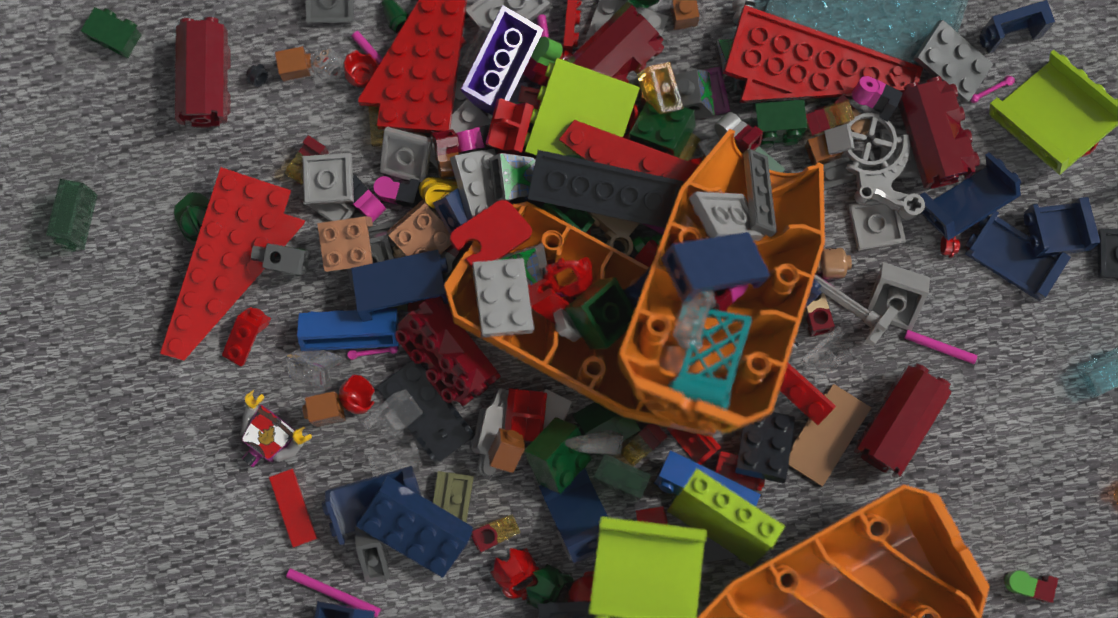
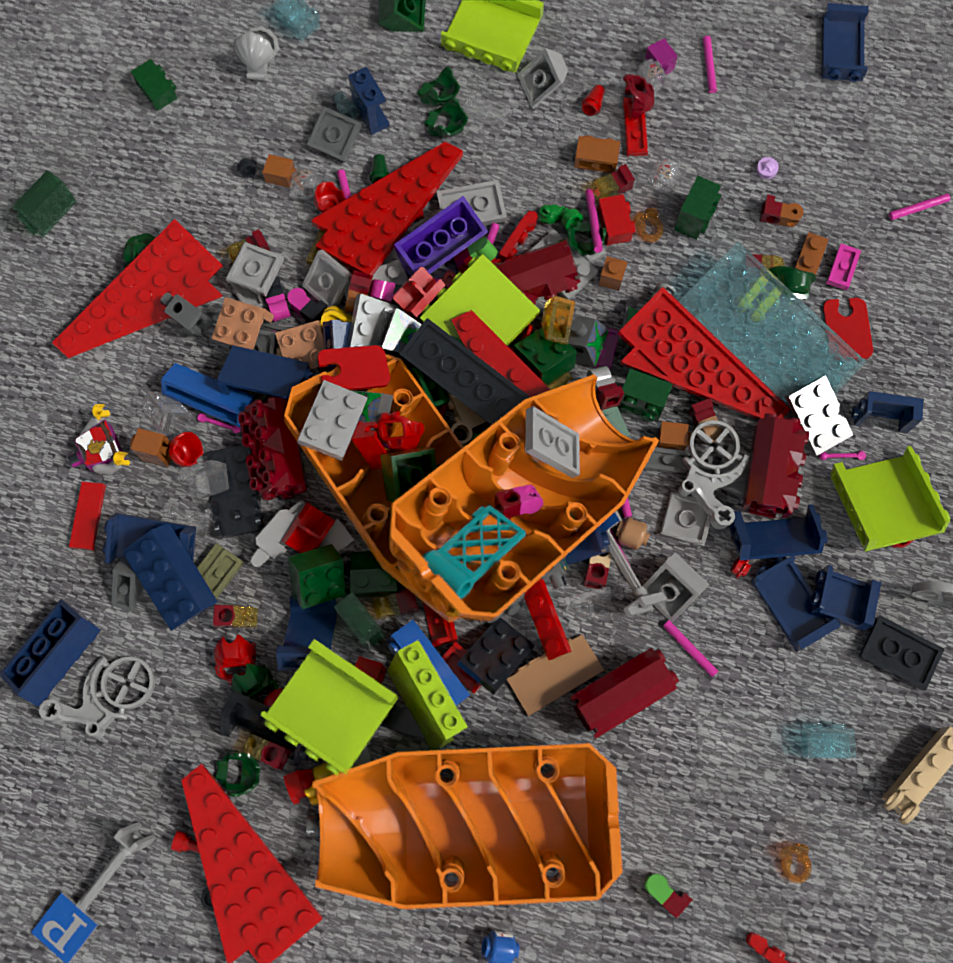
camera: 25 degrees right, 5 degrees down
(202, 73) = (202, 144): dark red brick -> none
(243, 335) = (123, 359): red bracket -> none
(331, 591) = (80, 599): dark pink bar -> none
(506, 450) = (276, 550): dark orange brick -> none
(565, 326) = (374, 470): light grey plate -> none
(599, 442) = (353, 581): clear slope -> none
(693, 319) = (474, 506): clear hinge -> none
(714, 264) = (517, 472): dark blue panel -> none
(759, 192) = (593, 439): dark grey tile -> none
(829, 116) = (688, 409): leg -> none
(839, 139) = (687, 432): light grey tile -> none
(877, 96) = (737, 411): leg -> none

